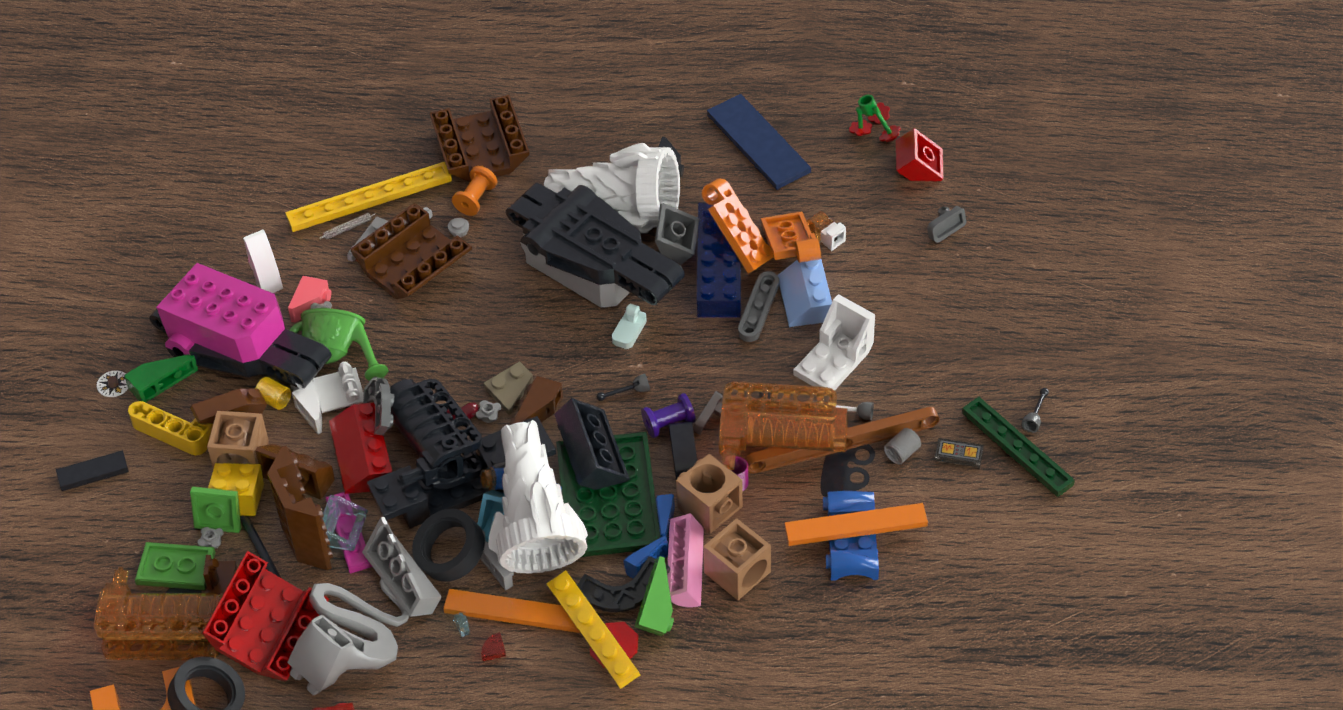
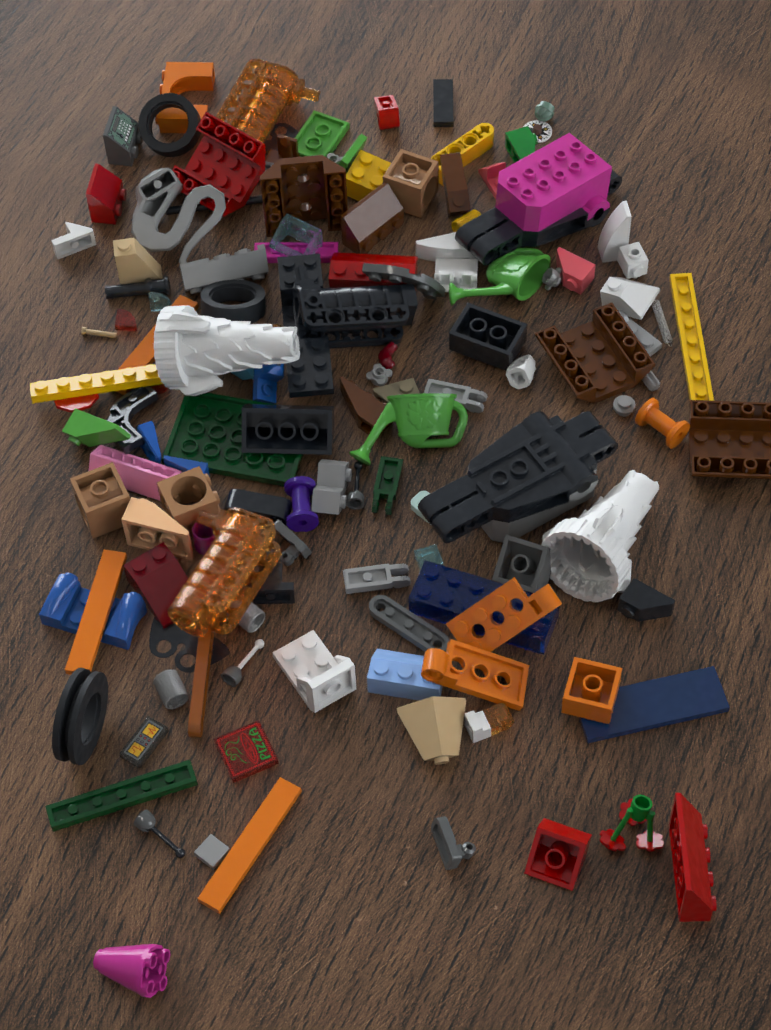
camera: 110 degrees right, 5 degrees up
(90, 378) = (544, 111): none -> sand green plate
(124, 506) = (387, 112): none -> red plate
(194, 392) = (490, 176): none -> coral slope
(286, 254) = (633, 260): none -> white brick
(326, 252) = (628, 296): none -> white slope
(418, 334) = (487, 336): none -> black brick
(422, 659) = (134, 262): none -> tan slope
(444, 640) = (141, 288): none -> black pin
(447, 302) = (521, 372): none -> white rock
(493, 349) = (463, 394): none -> light grey hinge
(519, 680) = (84, 331): none -> tan piece
(536, 351) = (416, 420): none -> bright green piece
(616, 365) = (387, 483): none -> dark green hinge
(627, 402) = (331, 486): none -> light grey brick
(681, 316) = (428, 553): none -> clear light blue tile
(721, 344) = (375, 578): none -> light grey hinge
(747, 502) = (149, 526): none -> light nougat slope
(774, 162) = (591, 690): none -> orange brick
(797, 493) = (157, 579): none -> dark red slope
(850, 257) = (435, 726): none -> tan slope
(894, 75) = (690, 862): none -> red slope
(931, 379) = (246, 751): none -> clear red tile
(972, 454) = (80, 716): none -> black tyre
(1012, 348) = (249, 845): none -> orange tile
(1032, 371) = (212, 851): none -> light grey tile
(1159, 374) = (135, 967): none -> dark pink cone

